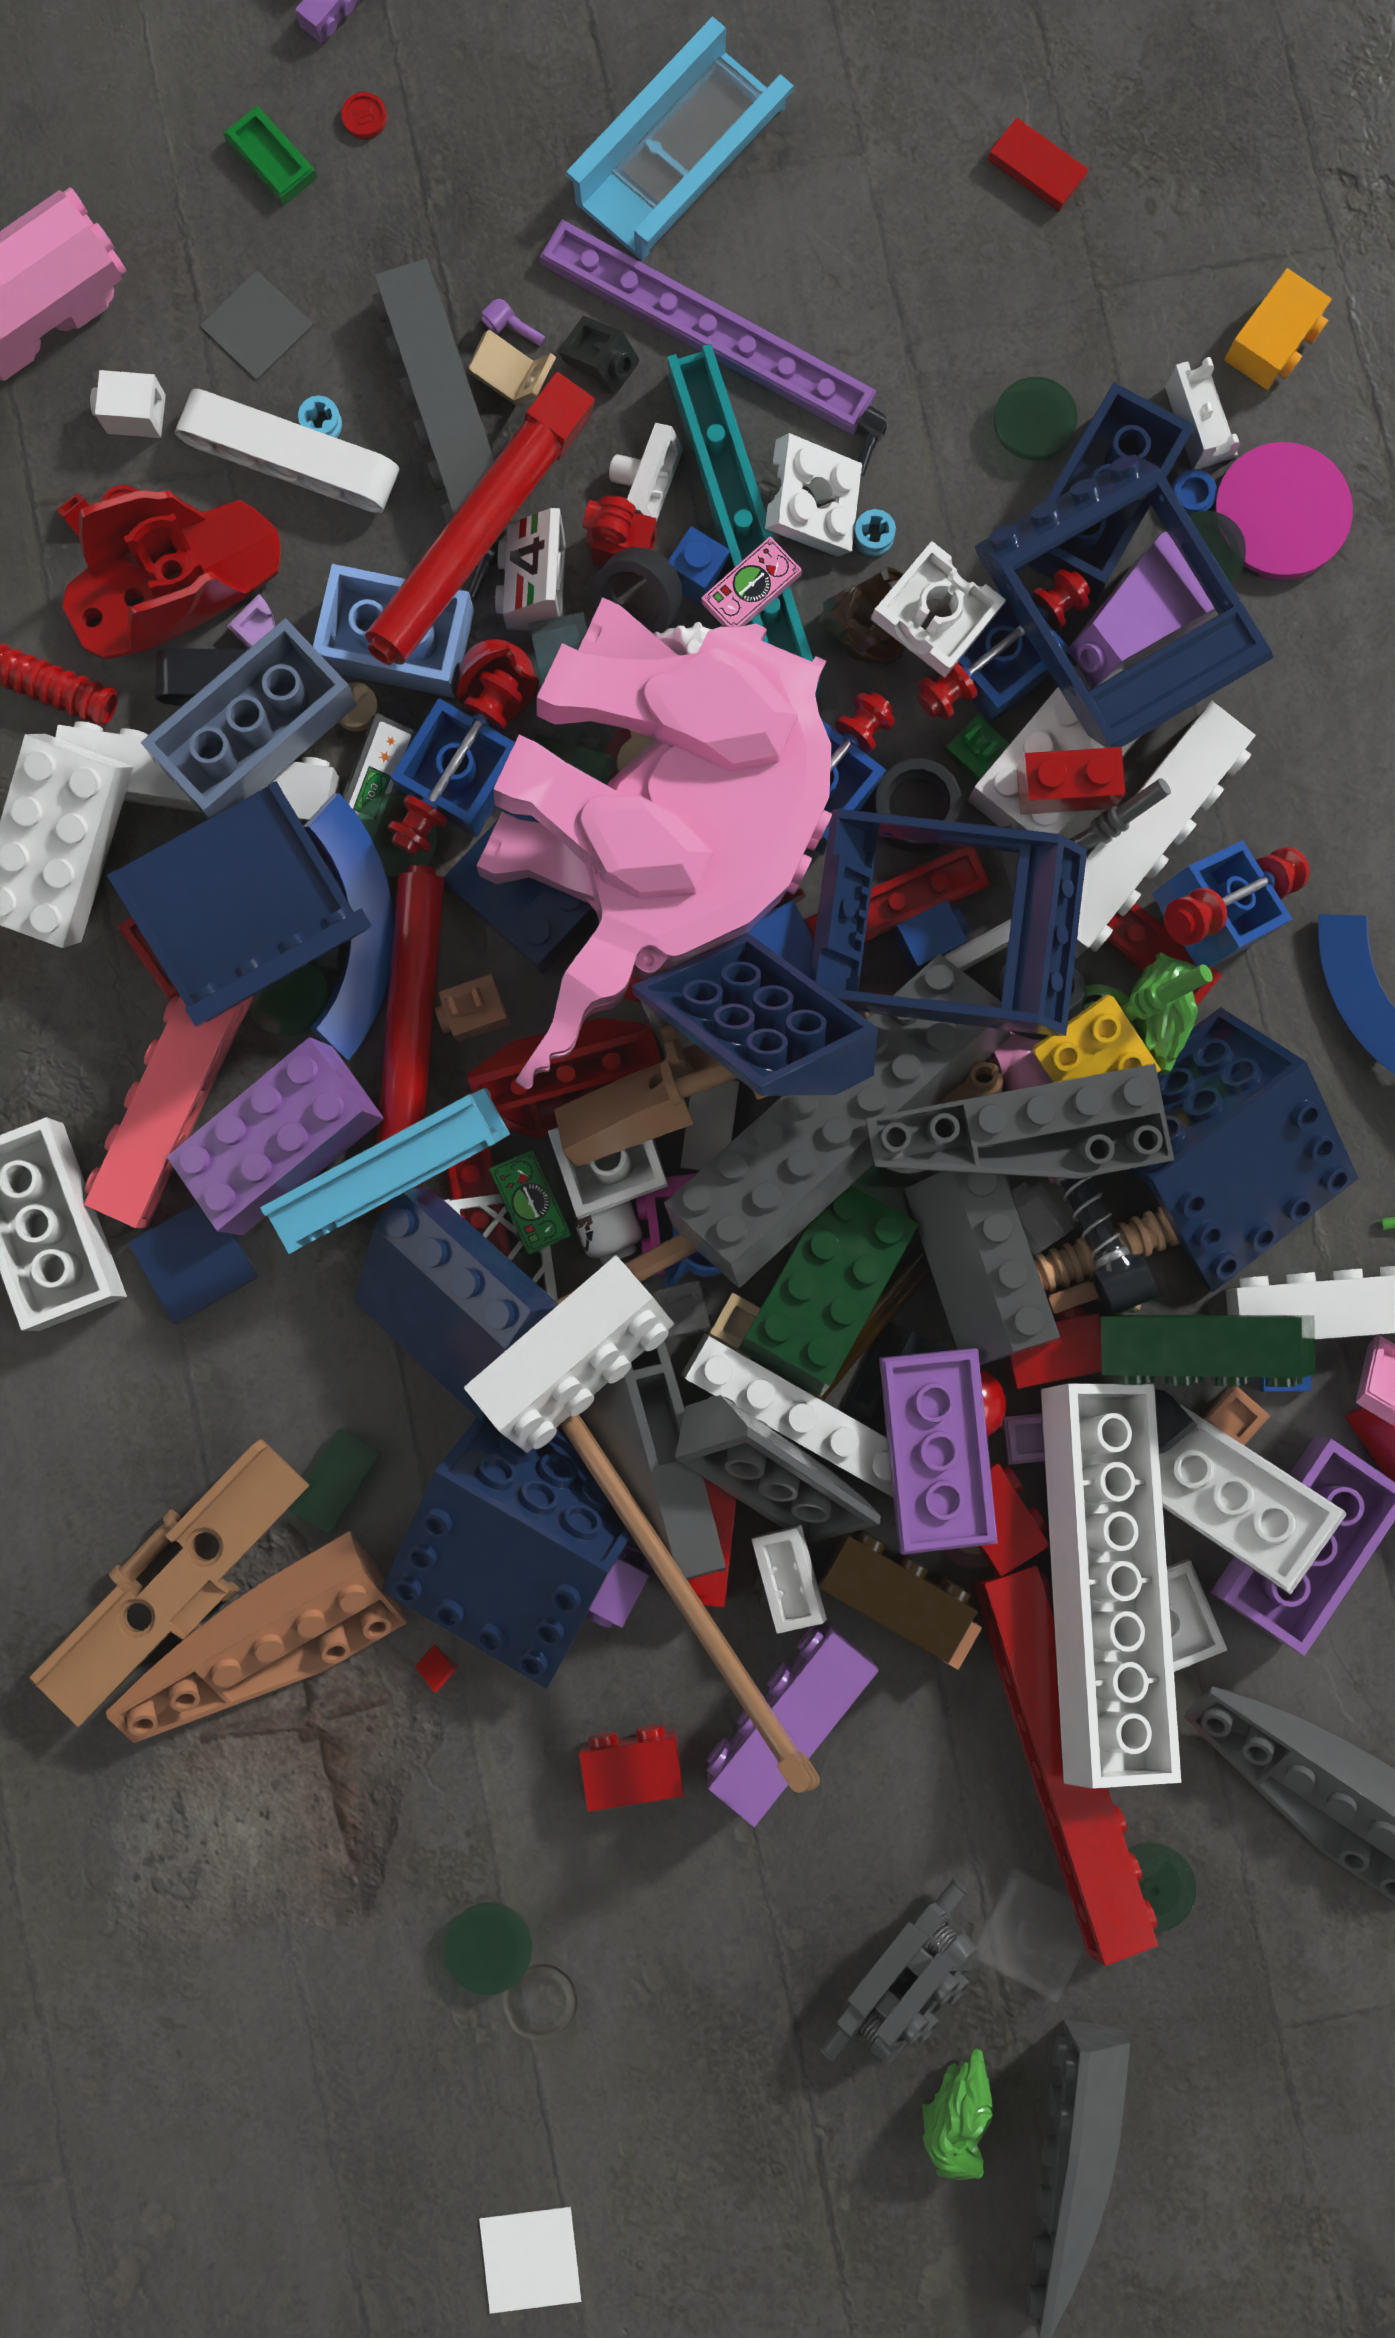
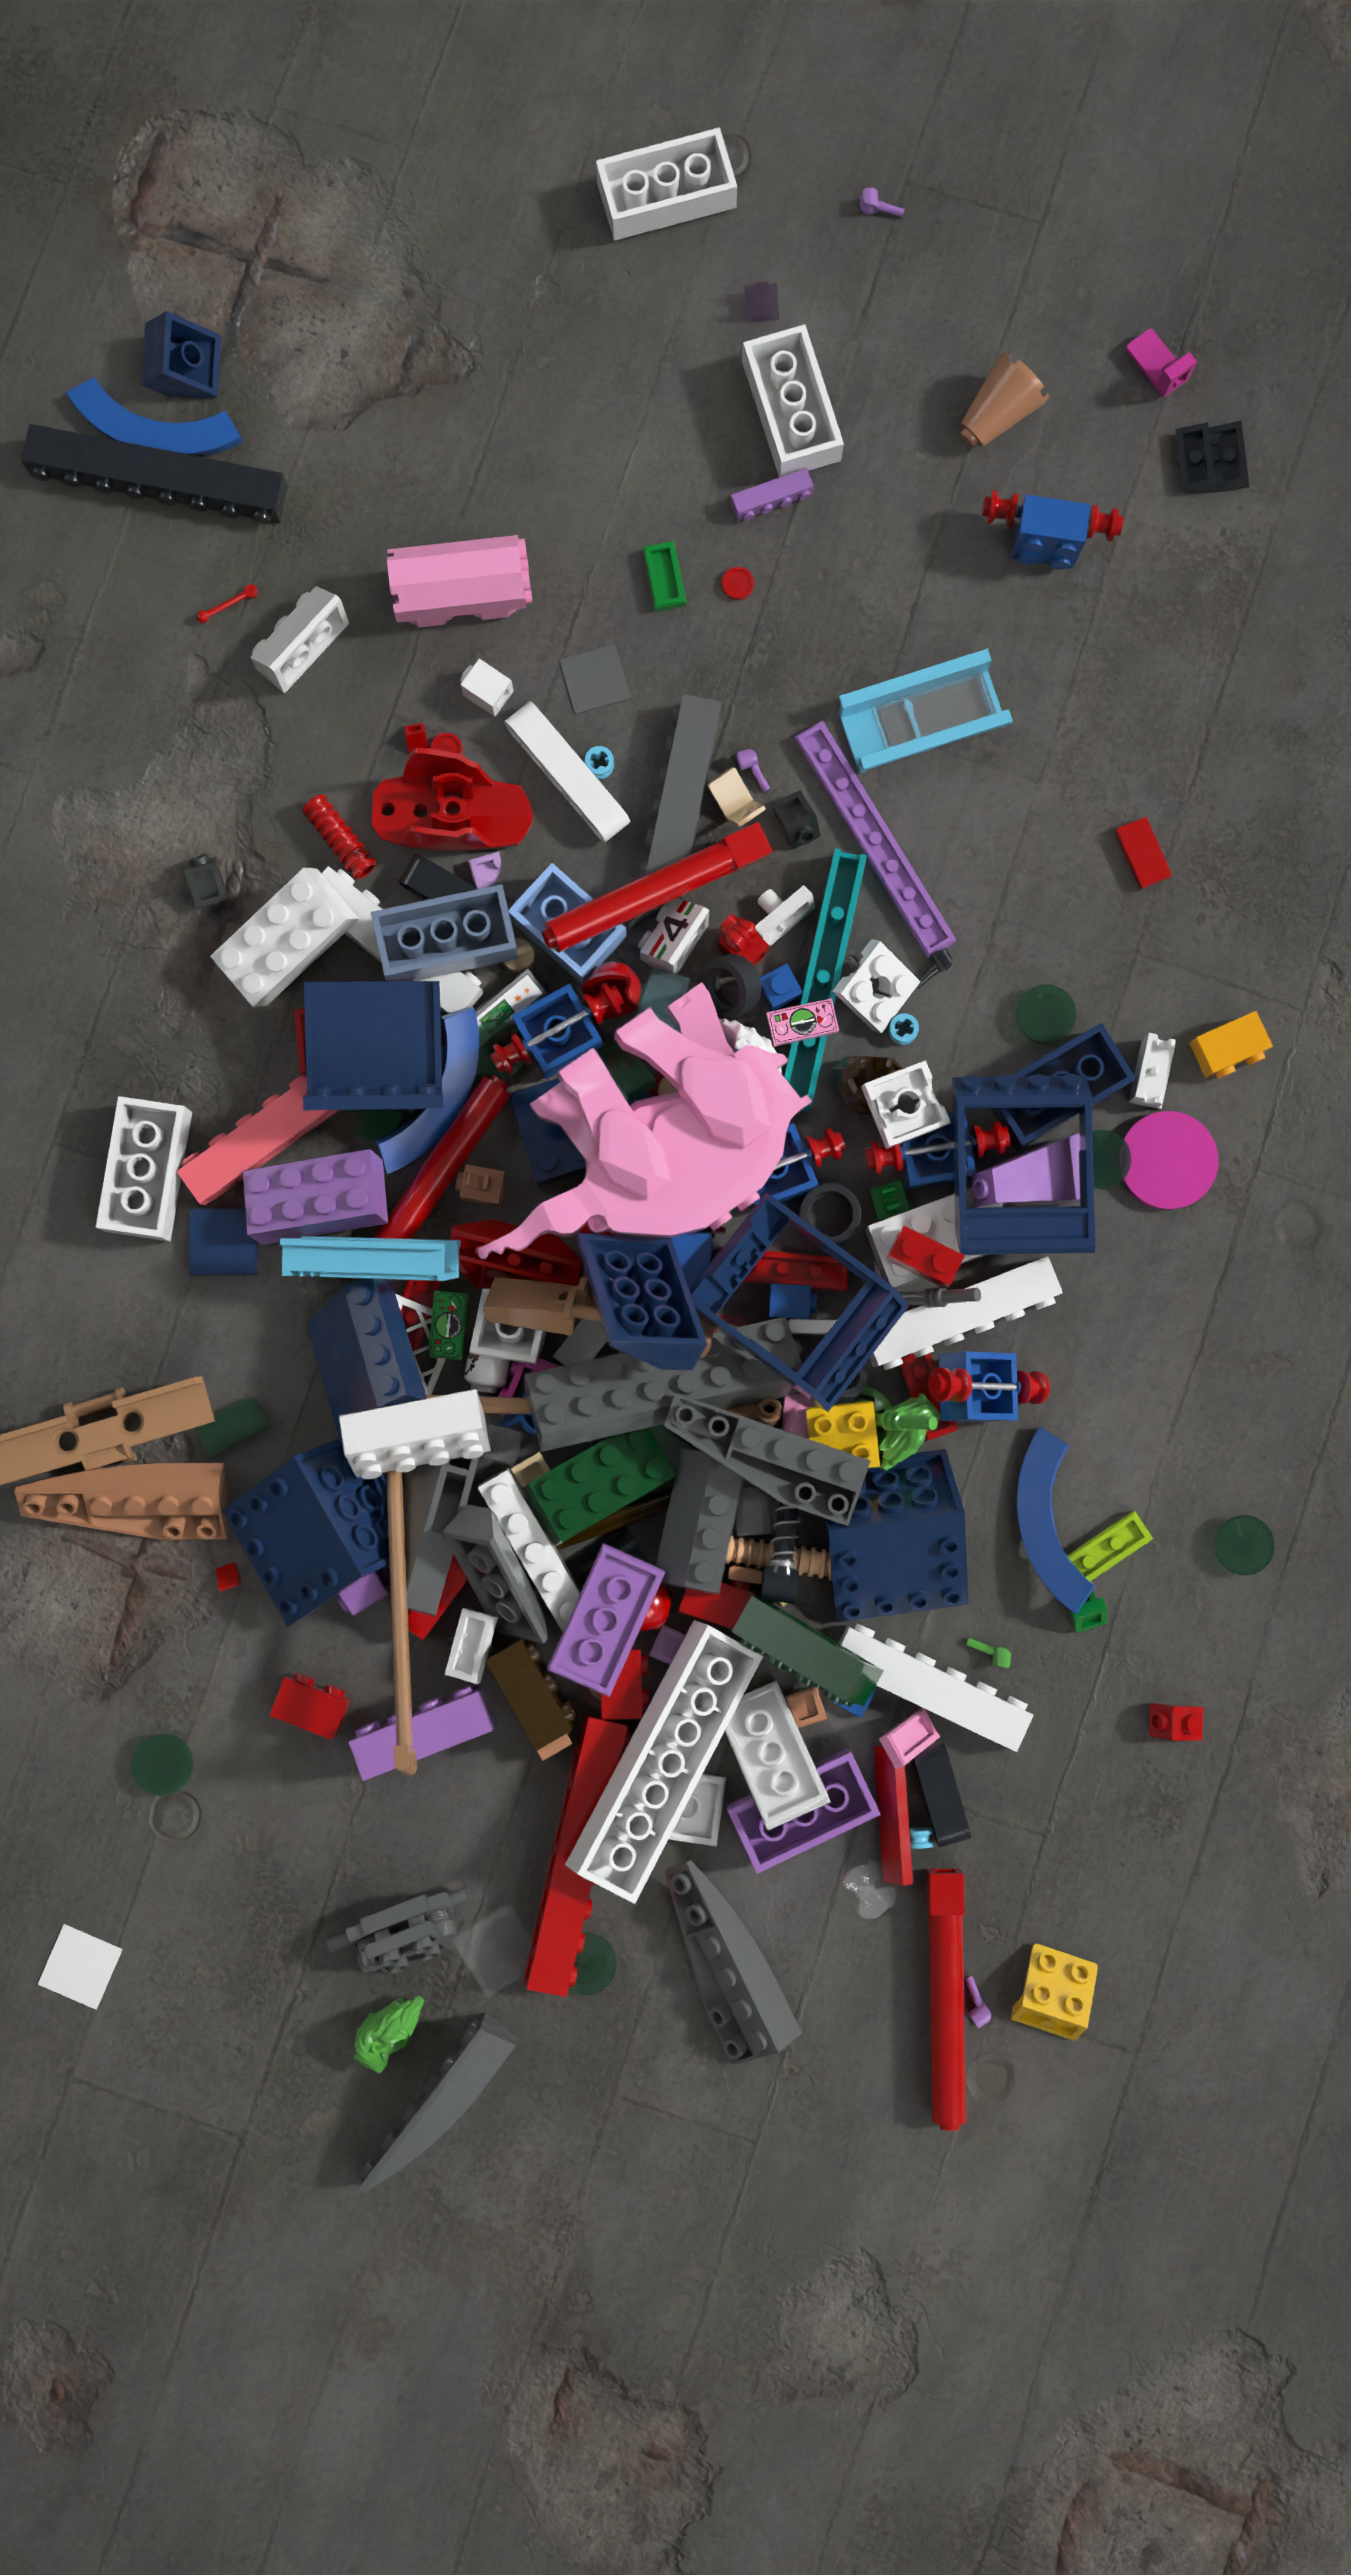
camera: 25 degrees right, 0 degrees up
(1172, 1421) = (762, 1685): black tile -> none
(1195, 490) = (1118, 1117): blue tile -> none

